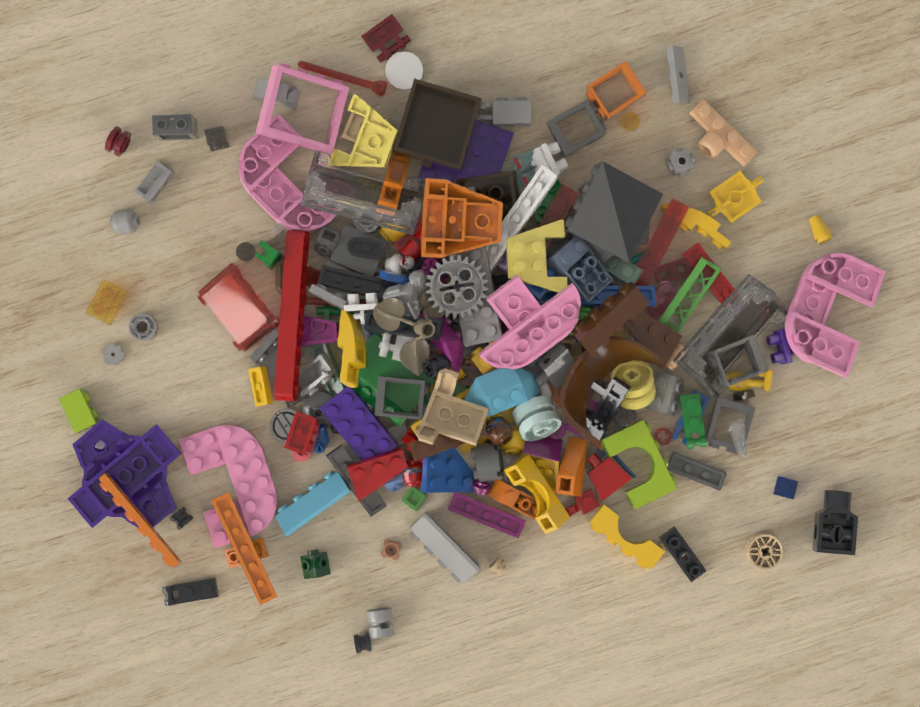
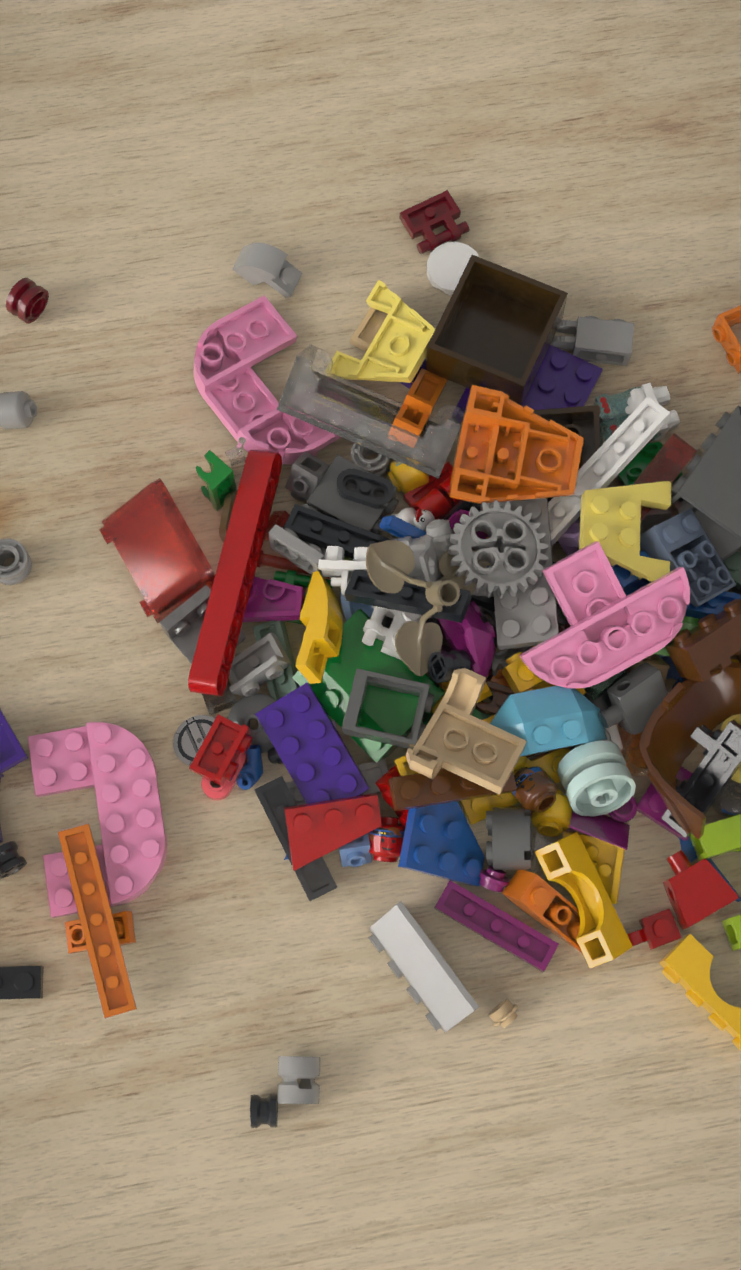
camera: 15 degrees right, 15 degrees down
(154, 182) = (69, 366): light grey hinge -> none
(181, 128) = (112, 290): dark grey window -> none
(217, 138) = (170, 316): clear smoke brick -> none
(245, 251) = (183, 479): clear smoke tile -> none
(260, 386) = (170, 673): yellow plate -> none
(269, 101) = (277, 322): bright pink window -> none
(310, 505) = (221, 865): medium azure slope -> none
(315, 564) = (207, 965): dark green brick -> none
(377, 86) = (414, 283): clear red piece -> none
(391, 554) = (331, 952): nougat plate -> none
(414, 498) = (382, 883): bright green tile -> none
(558, 136) = (665, 375): dark grey window -> none
(572, 468) = (643, 870): orange slope -> none

